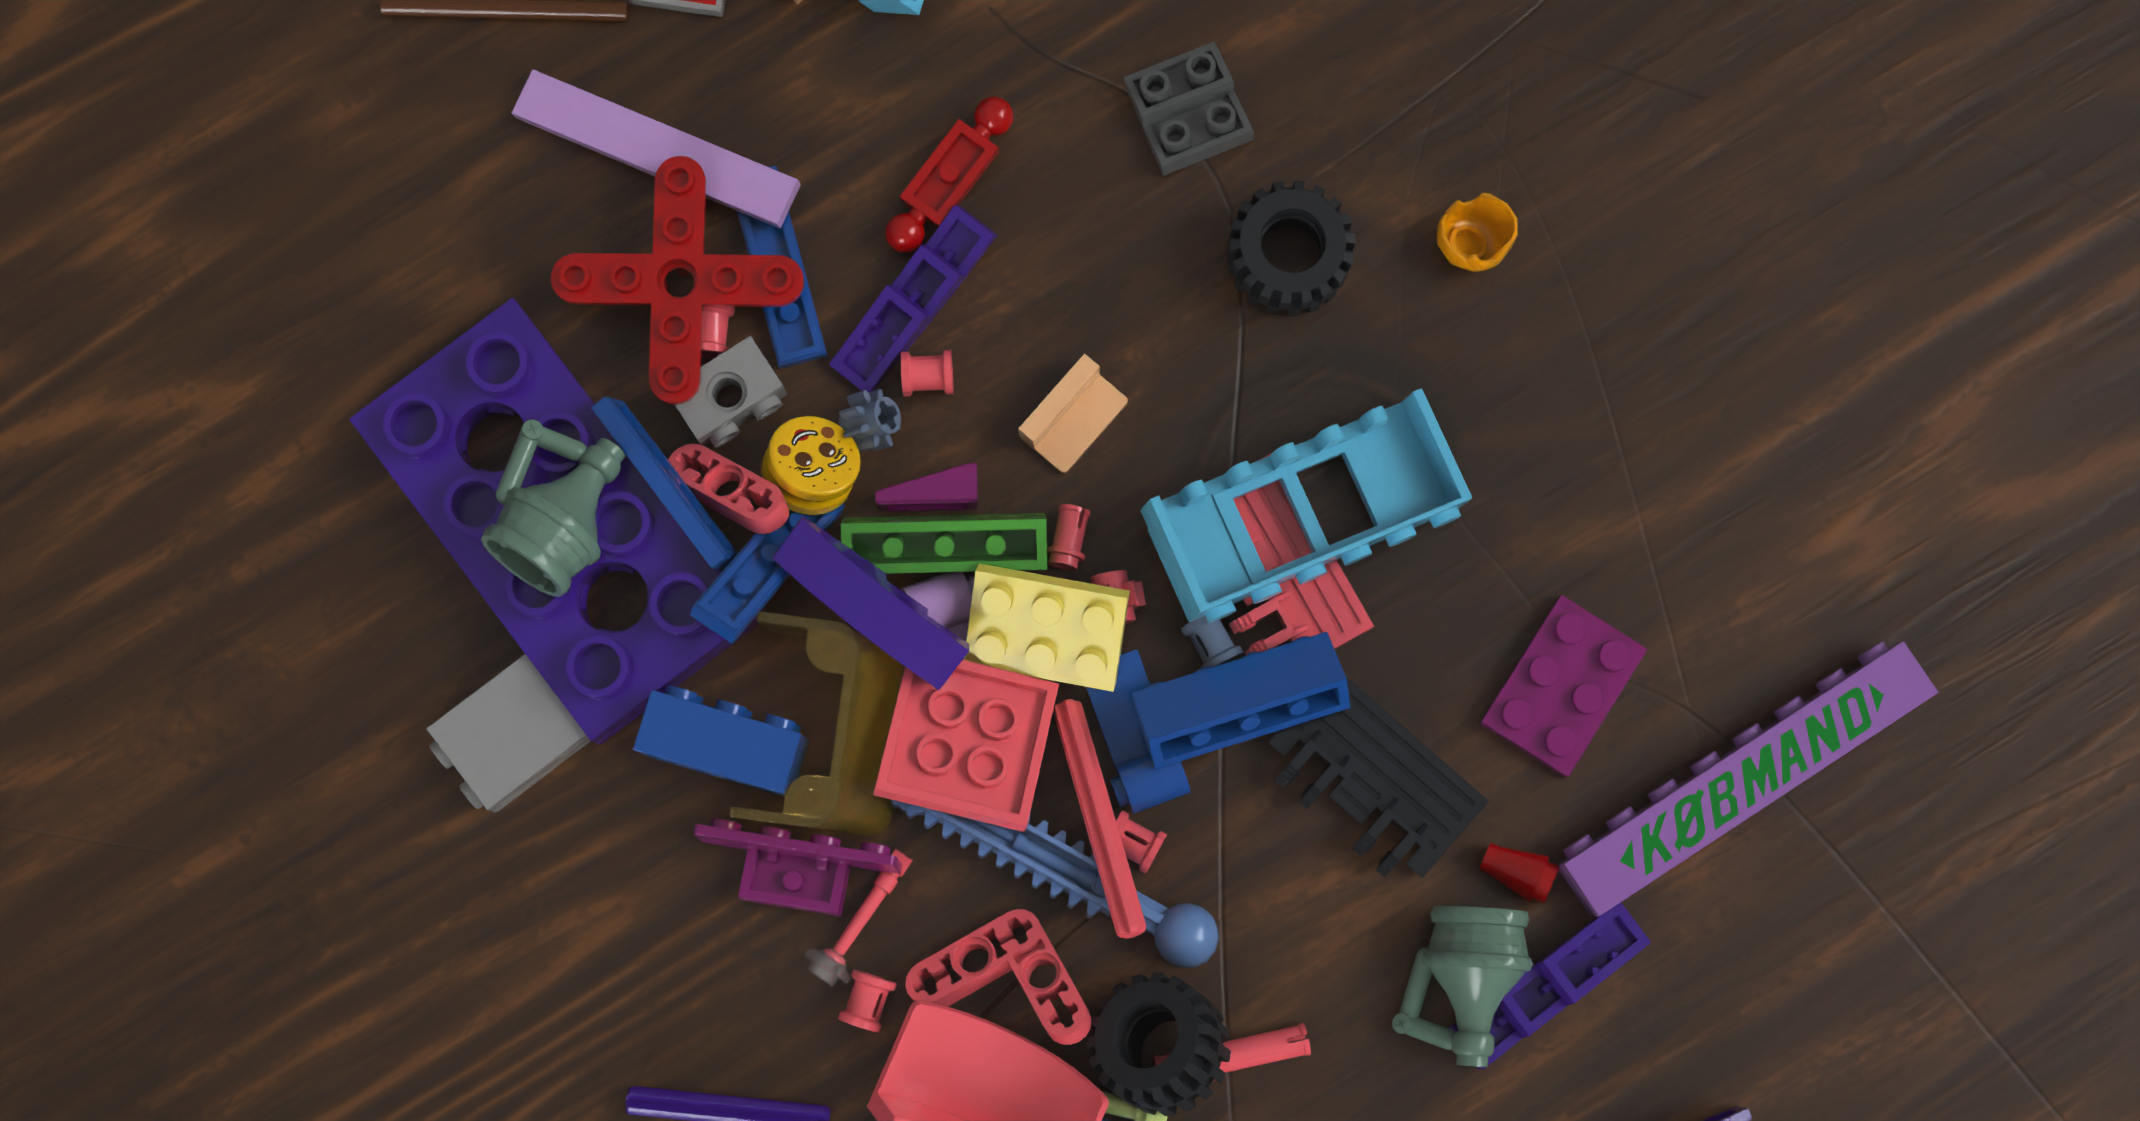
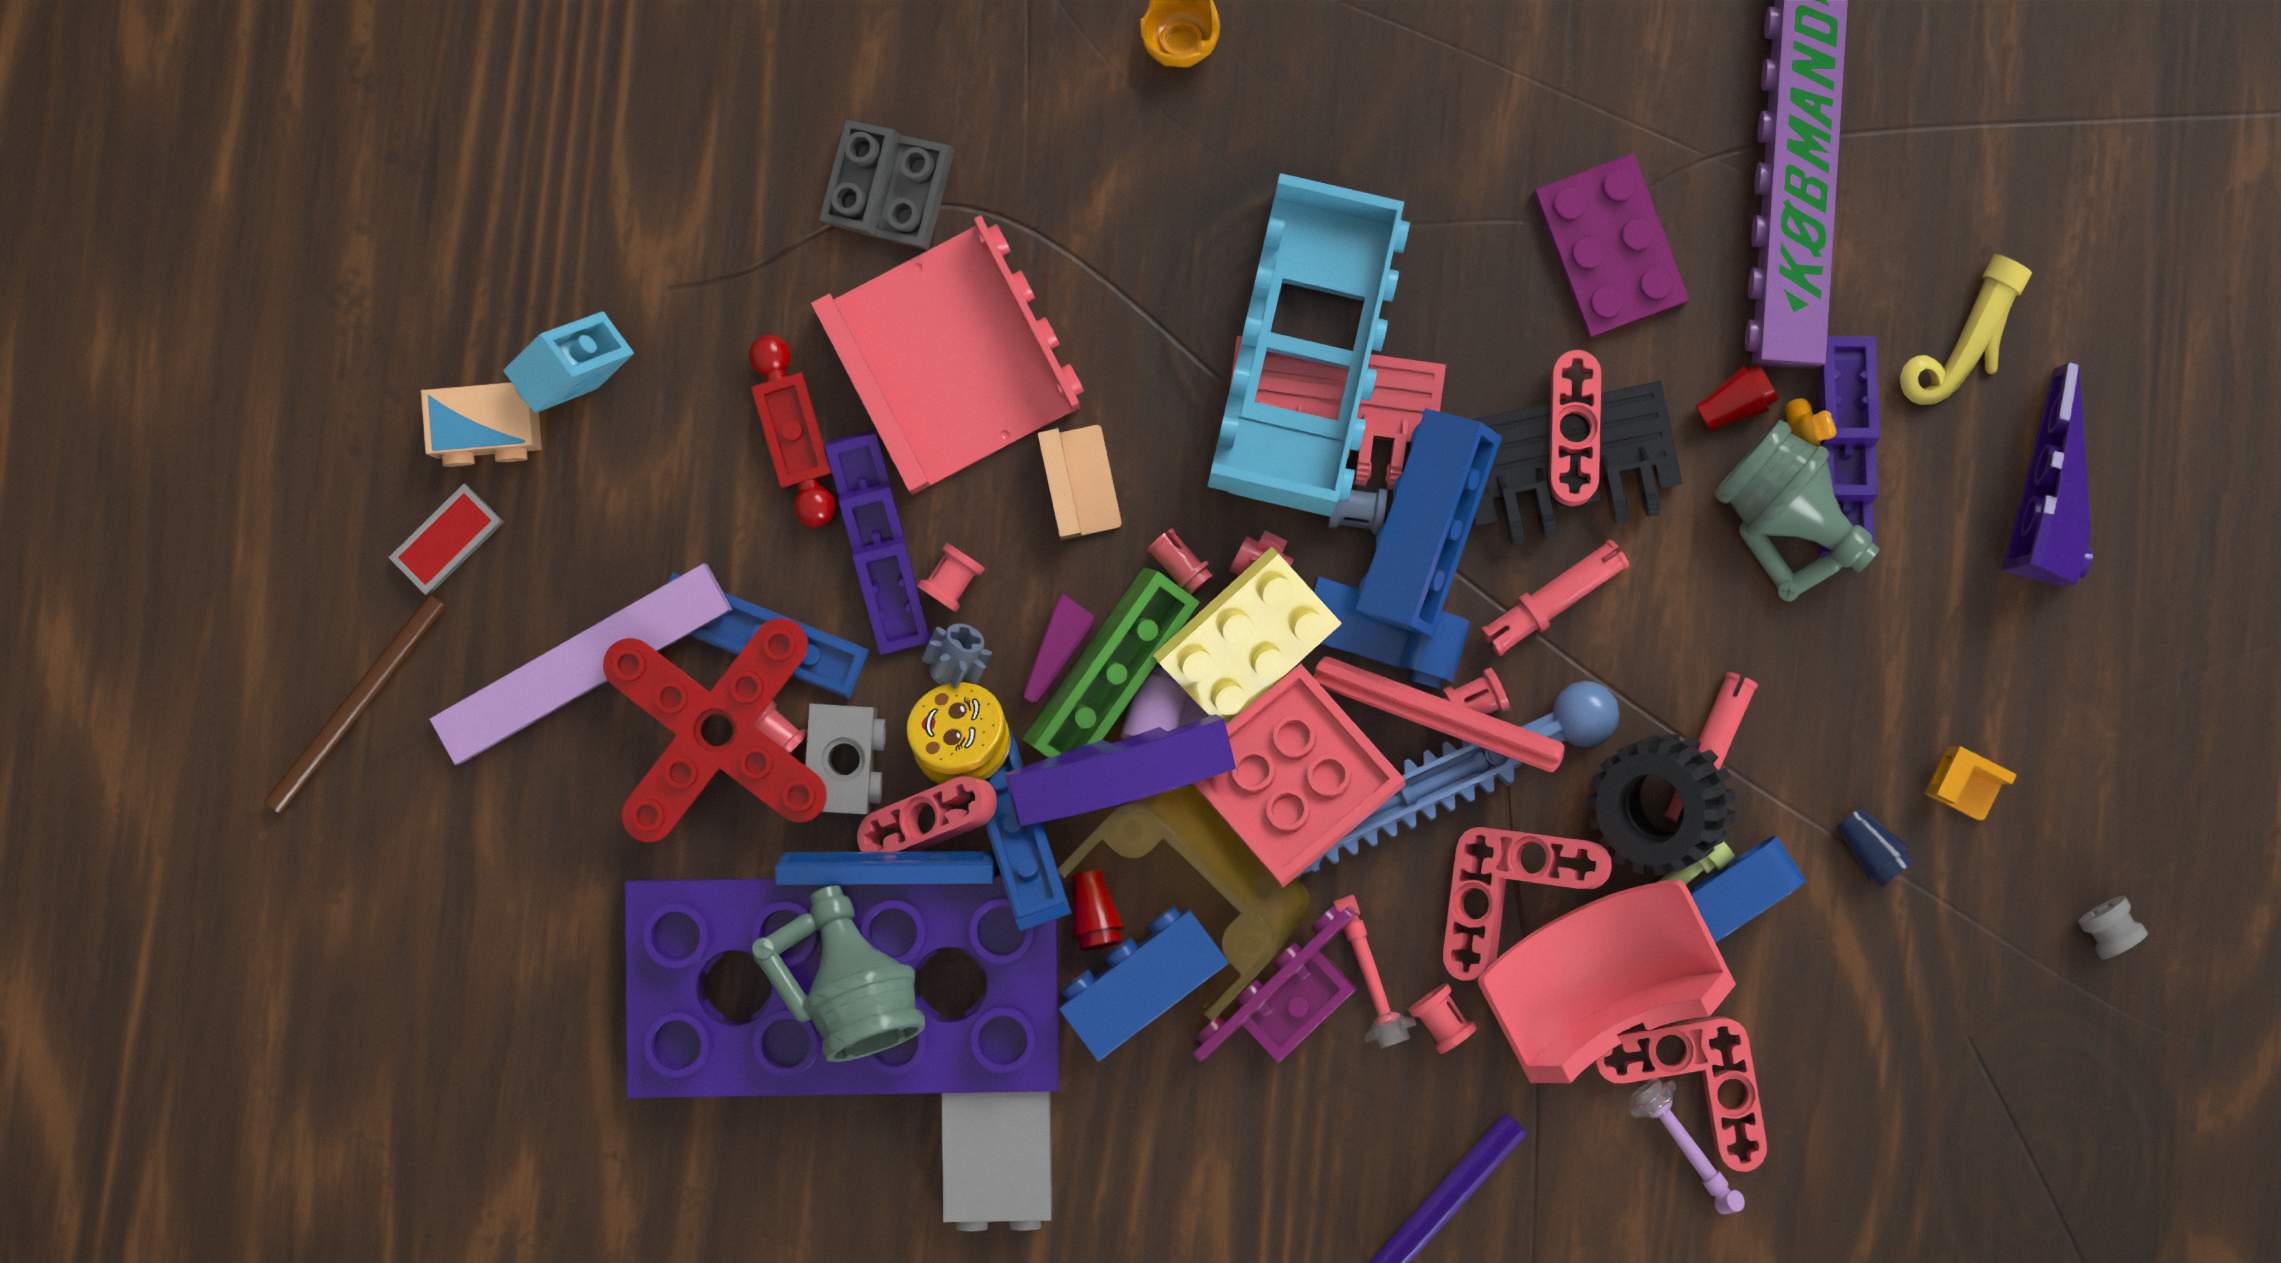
camera: 55 degrees left, 5 degrees up
(750, 672) = (1094, 912): none -> red cone
(1092, 249) = (950, 356): none -> coral panel
(1258, 844) = (1536, 610): none -> coral pin
(1290, 208) = (1069, 147): black tyre -> none
(1438, 750) = (1591, 390): none -> coral beam
(1542, 939) = (1809, 426): none -> light orange arm
(1718, 1025) = (1981, 334): none -> light yellow plant

